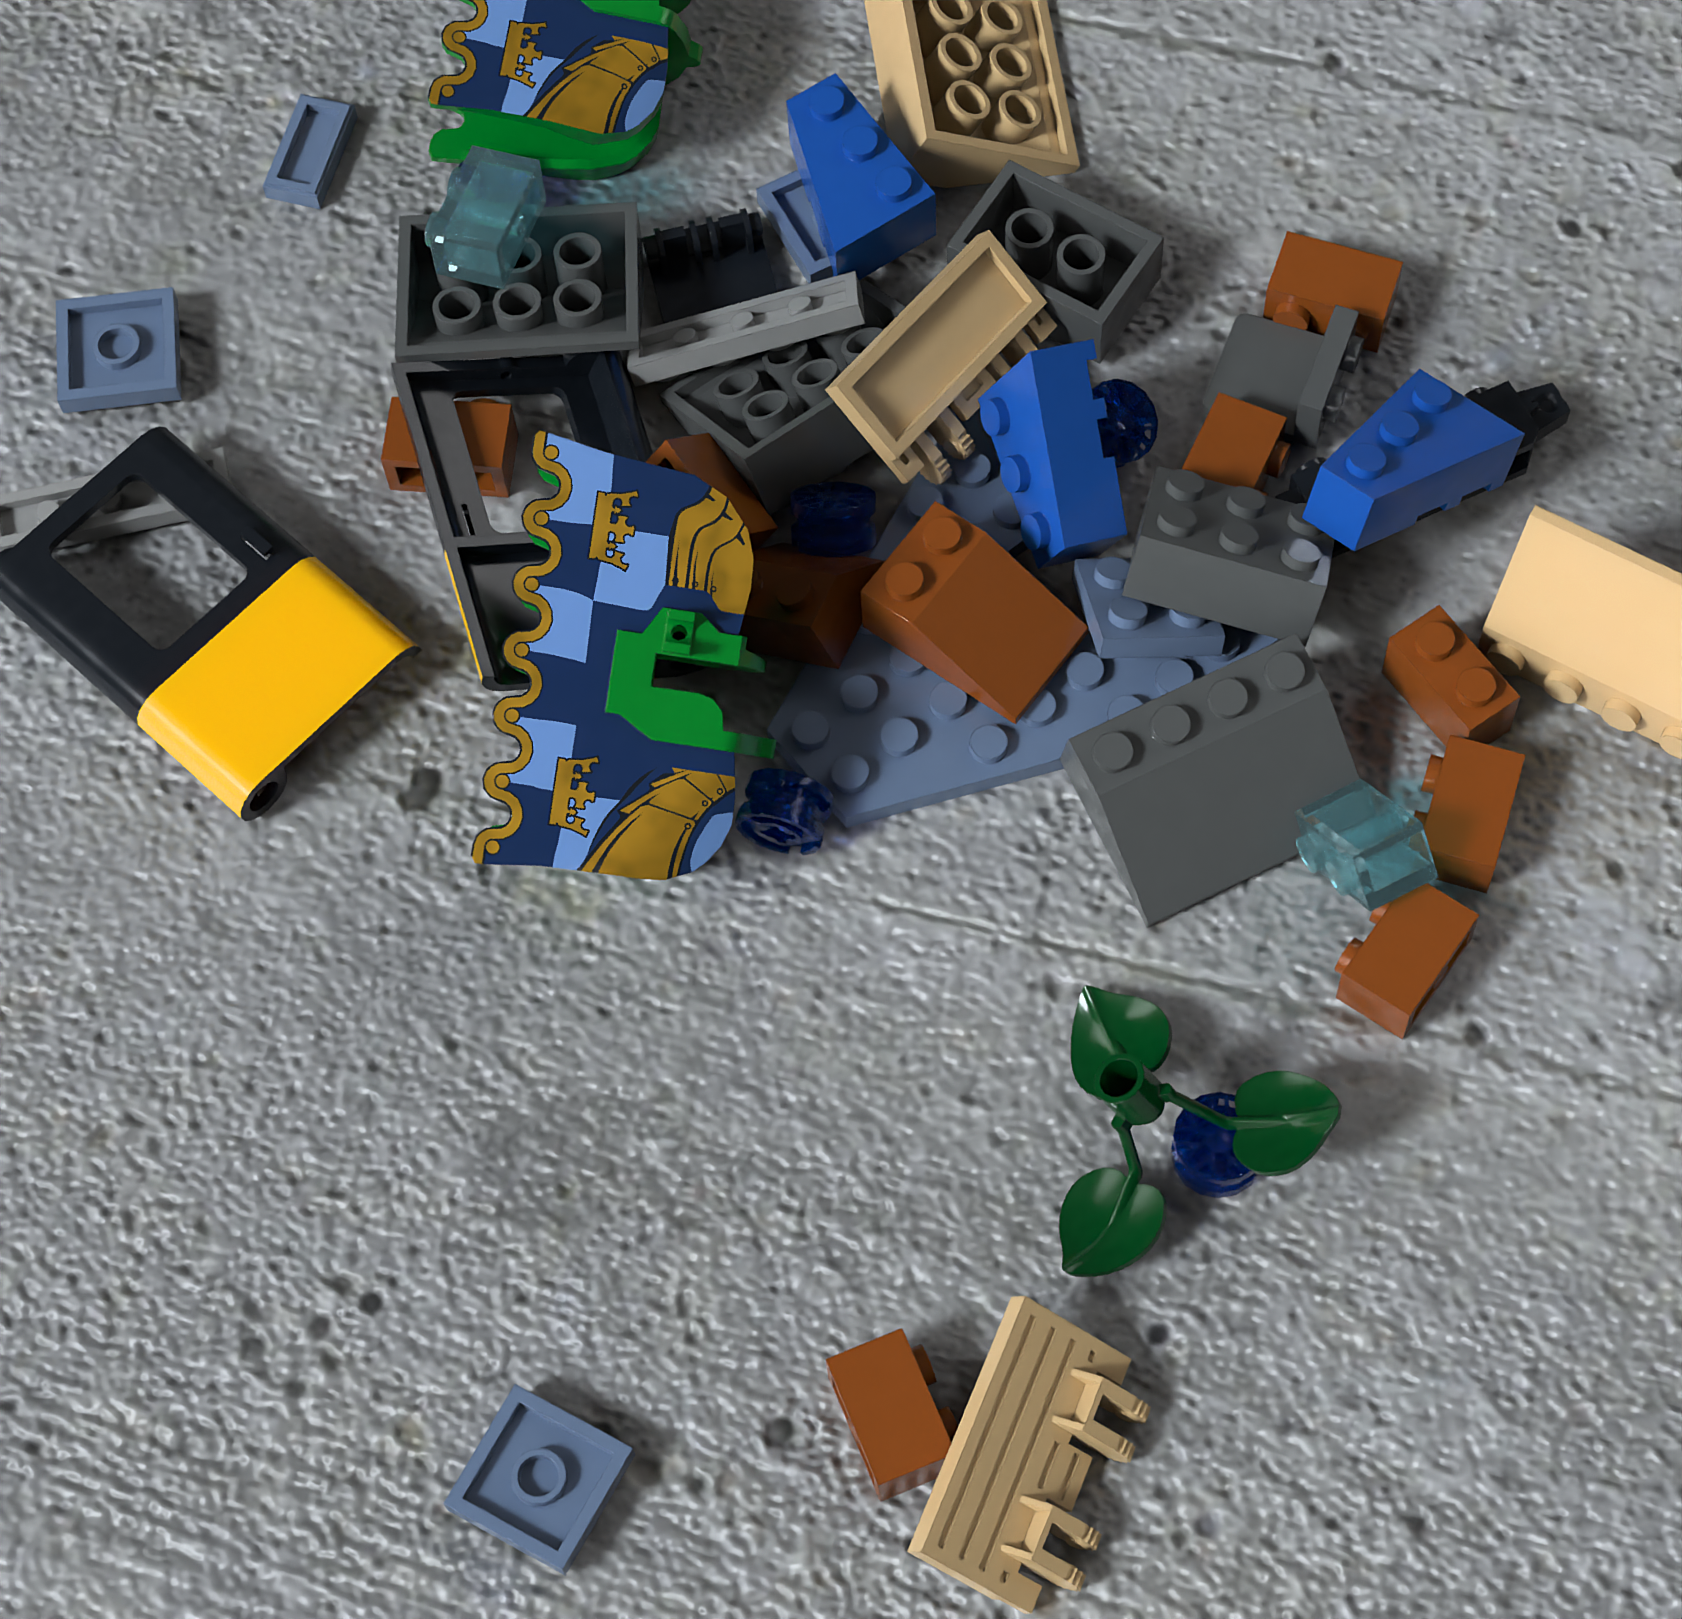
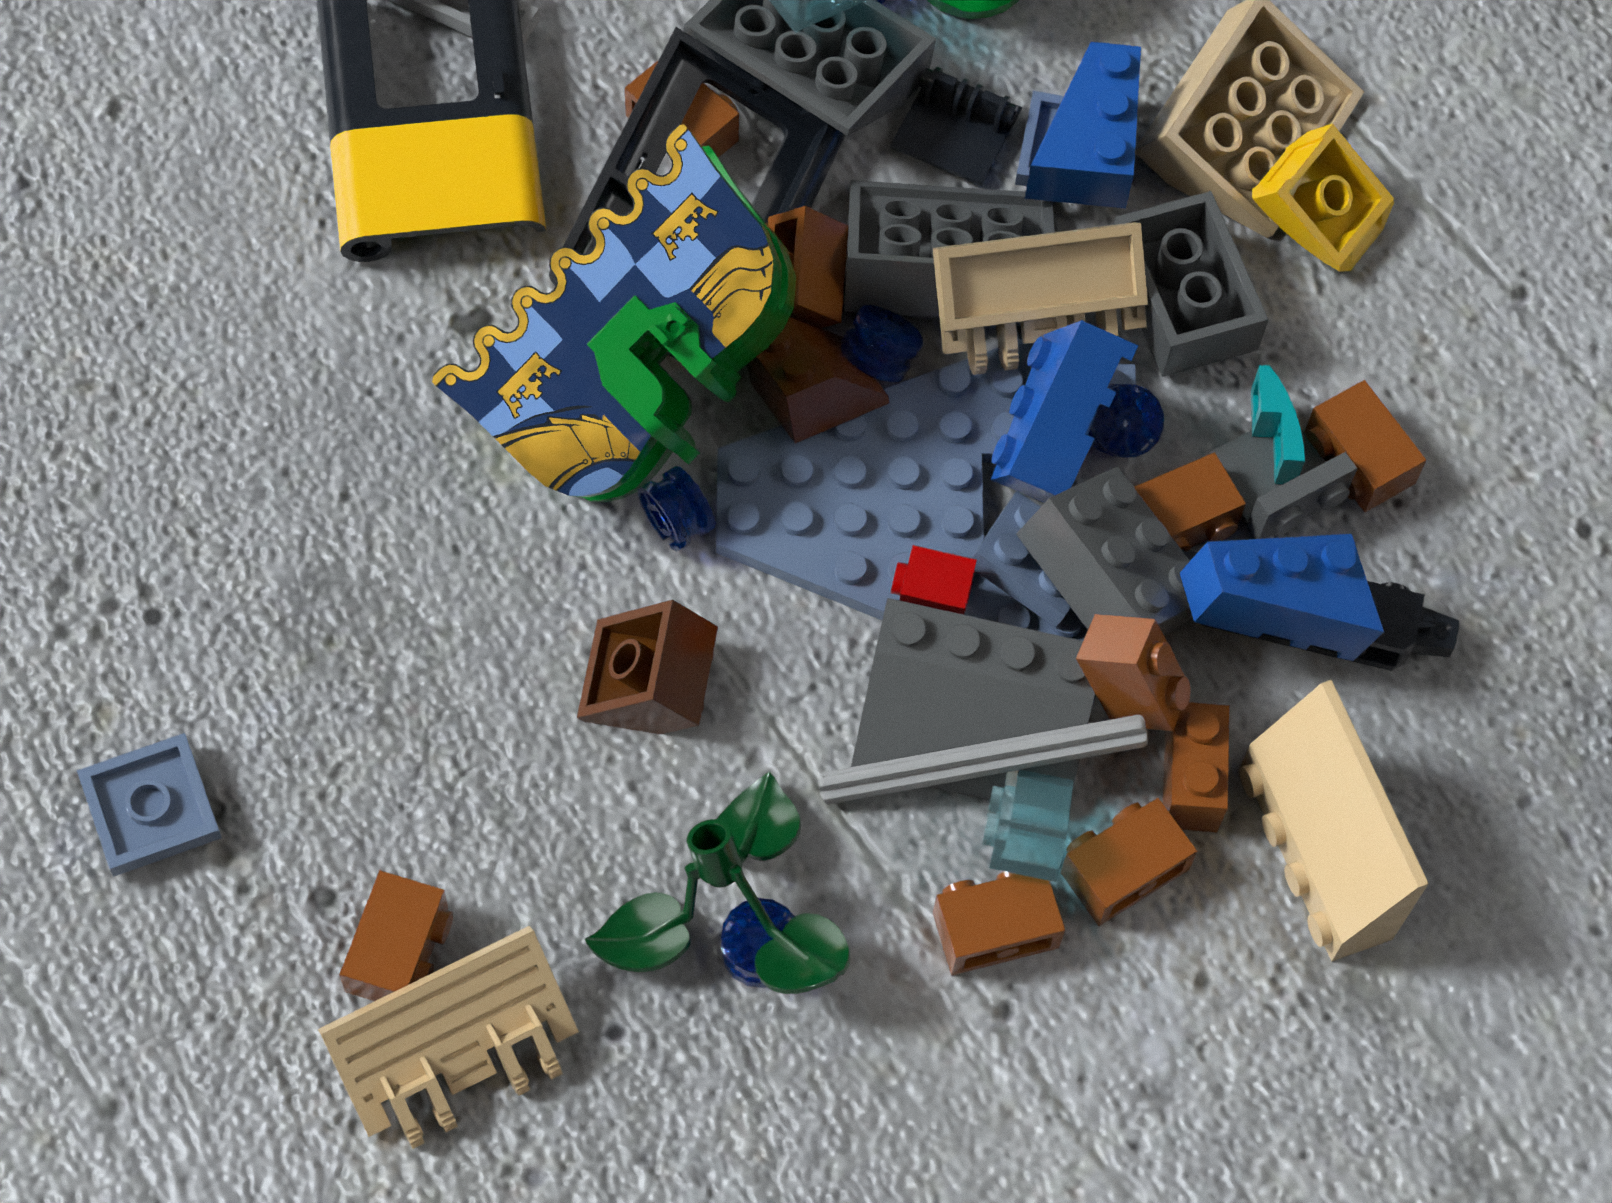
camera: 30 degrees right, 0 degrees up
(747, 329) = (939, 177): light grey plate -> none
(891, 980) = (649, 669): none -> reddish brown slope
(970, 613) = (910, 470): dark orange slope -> none
(1087, 693) = (935, 579): none -> red brick
(1099, 95) = (1325, 198): none -> yellow slope
(1240, 319) = (1276, 418): none -> teal slope
(1269, 822) = (983, 759): none -> light grey axle
(1346, 635) = (1134, 670): none -> dark orange brick

